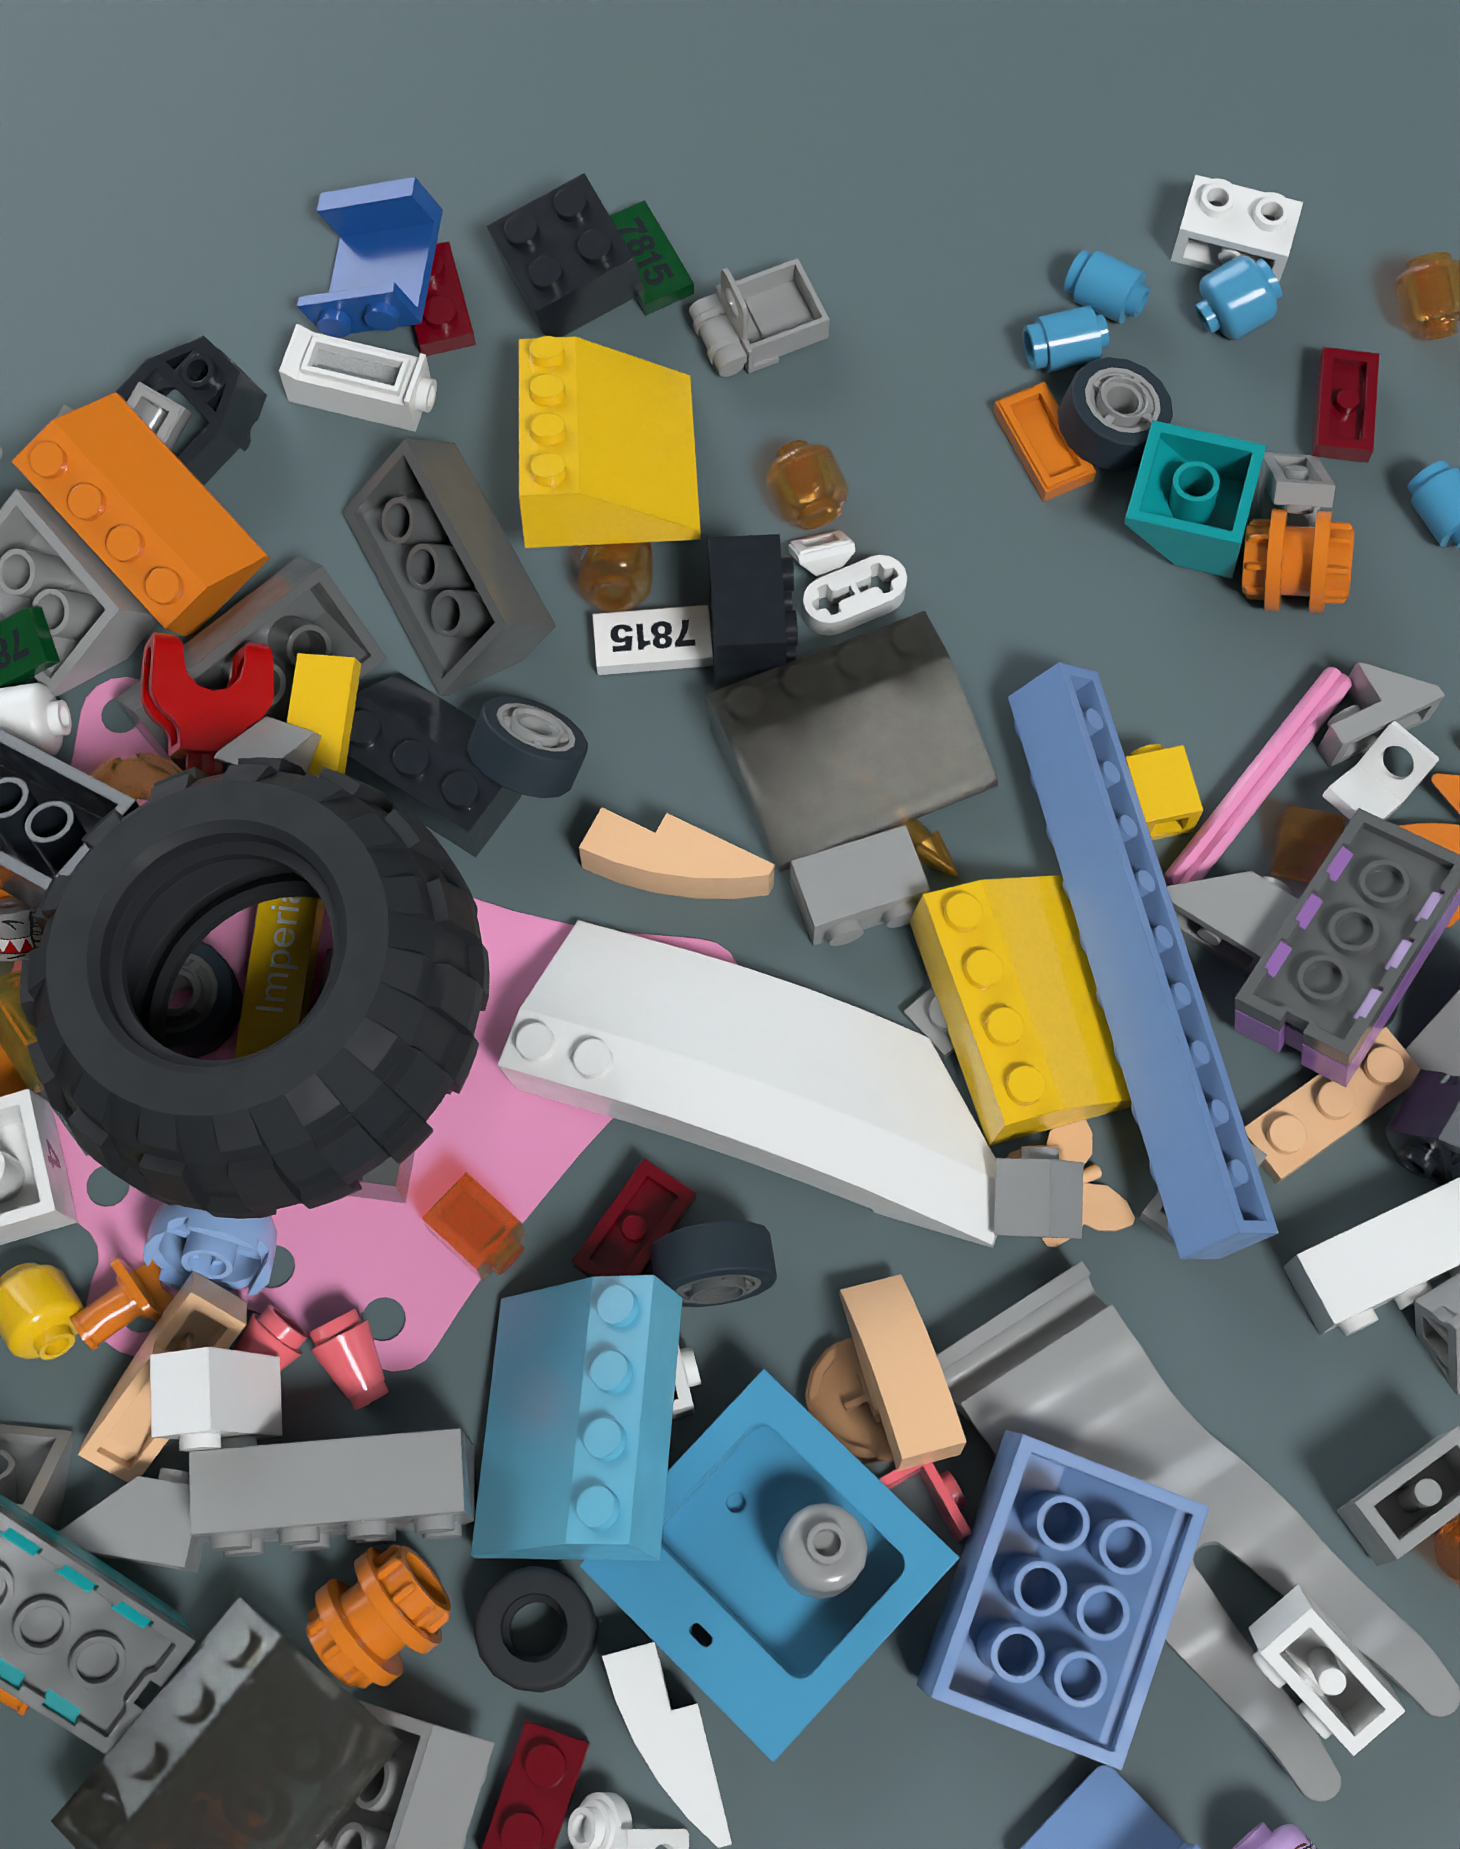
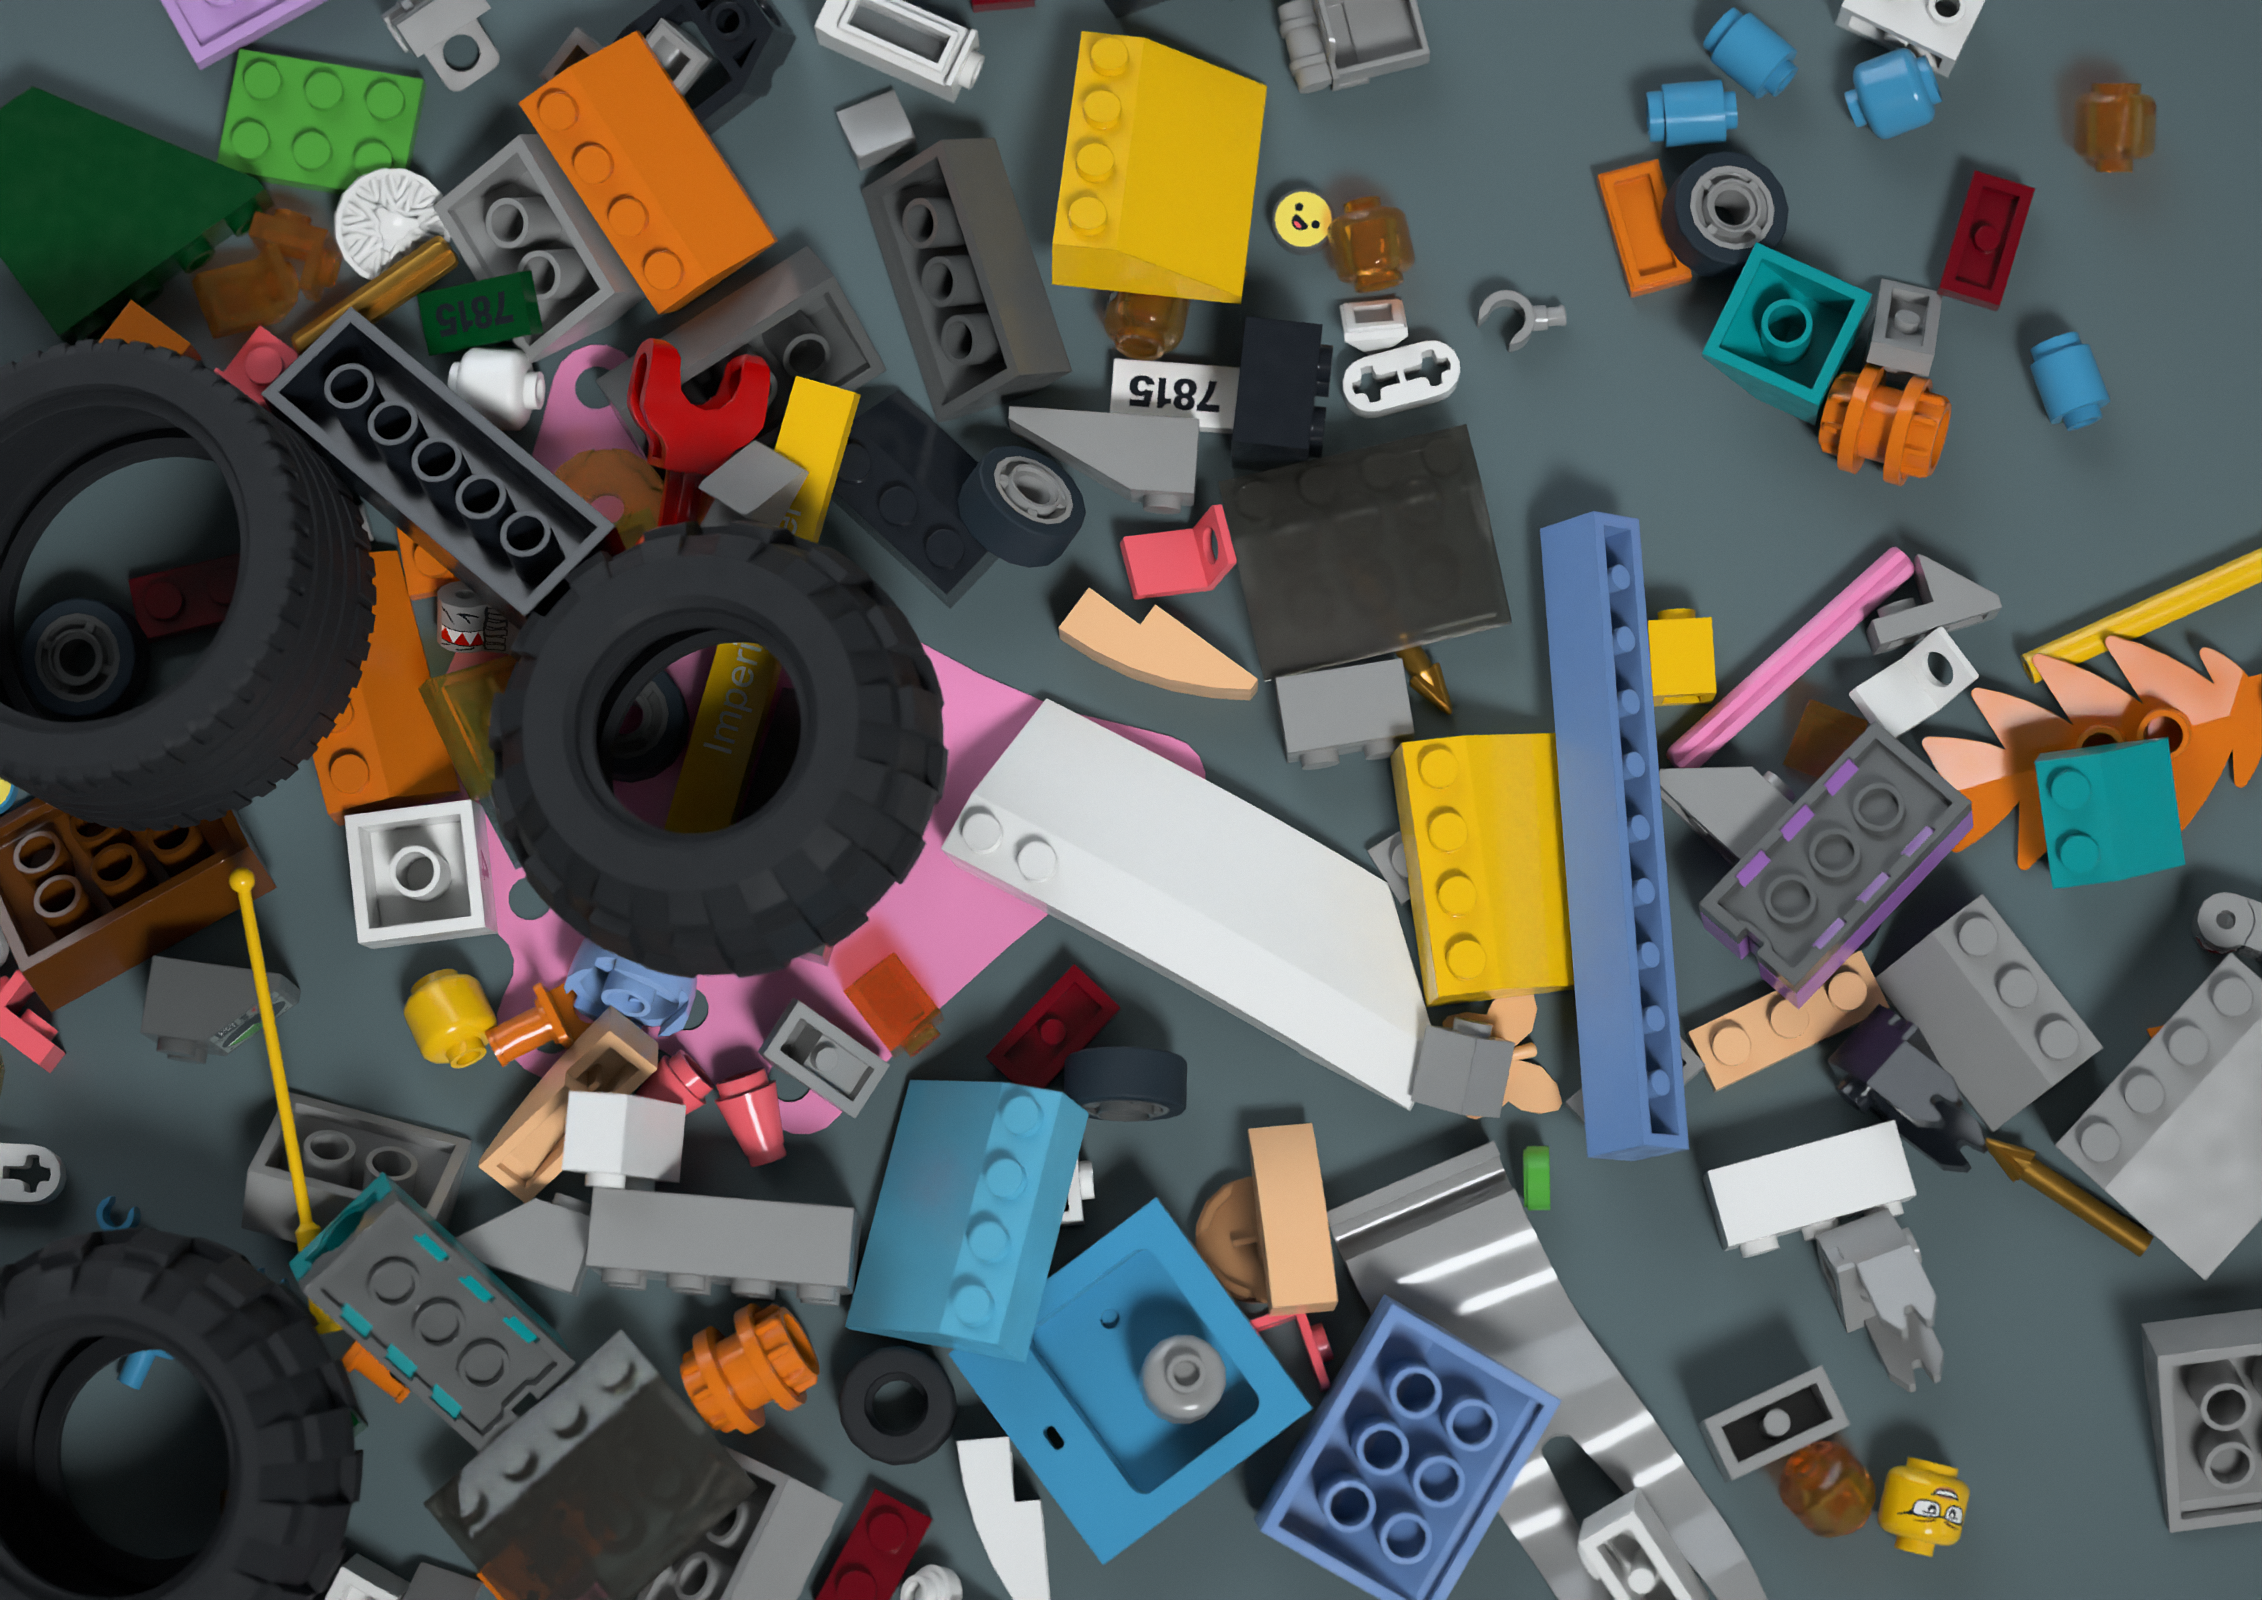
camera: 15 degrees right, 10 degrees up
(349, 460) = (877, 130): none -> light grey slope
(410, 1288) = (823, 1058): none -> light grey slope
(616, 691) = (1130, 454): none -> light grey slope
(683, 777) = (1179, 559): none -> coral bracket
(741, 479) = (1302, 221): none -> light yellow tile
(960, 526) = (1534, 317): none -> light grey piece
(1129, 1291) = (1536, 1178): none -> bright green tile

